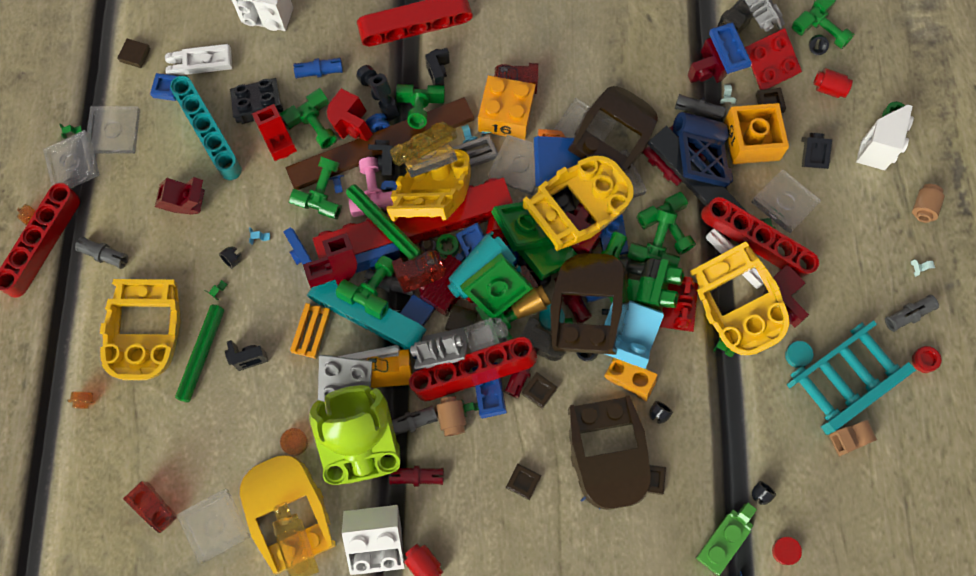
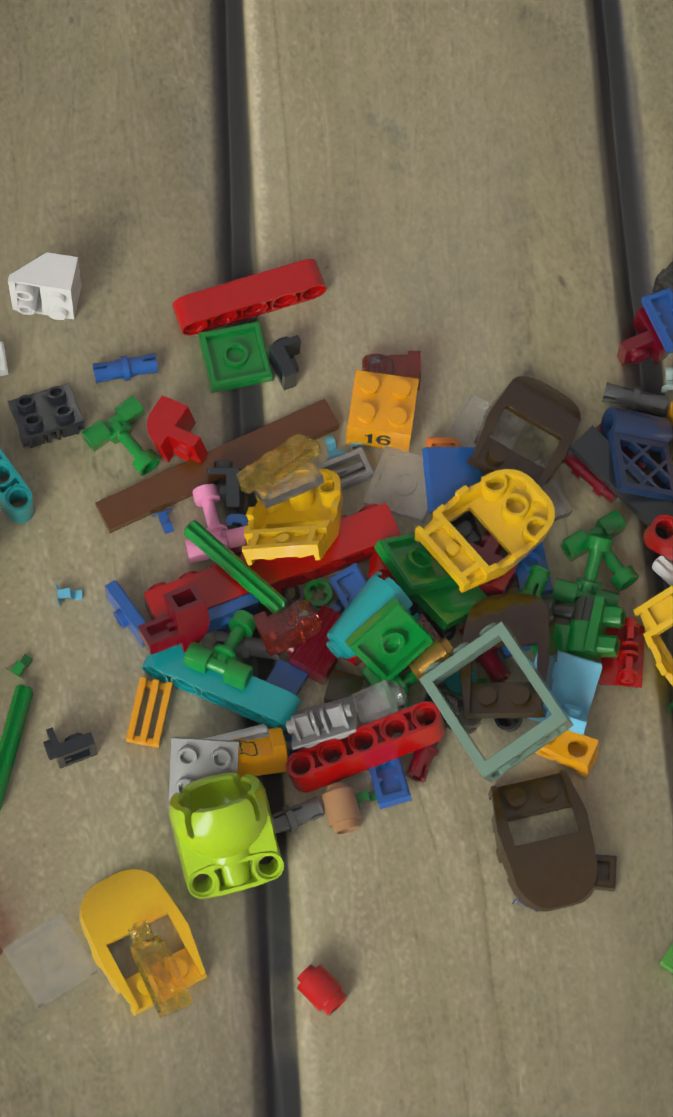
camera: 10 degrees left, 5 degrees down
(229, 257) = (34, 623): black hinge -> none
(274, 132) = (78, 458): red brick -> none
(294, 441) = (142, 852): clear orange tile -> none
(316, 198) = (142, 541): green bar -> none
(373, 539) = (256, 964): white slope -> none
(377, 122) = (213, 437): blue bush -> none
(380, 90) = (215, 395): black bar -> none
(402, 62) = (235, 357): none -> green tile
(417, 476) = (304, 884): dark red pin -> none
(419, 99) = (266, 405): green bar -> none
(523, 481) = (438, 884): dark brown tile -> none
(539, 390) = (450, 771): dark brown tile -> none
(598, 378) = (525, 744): none -> sand green window
(660, 411) = (606, 788): black hinge -> none

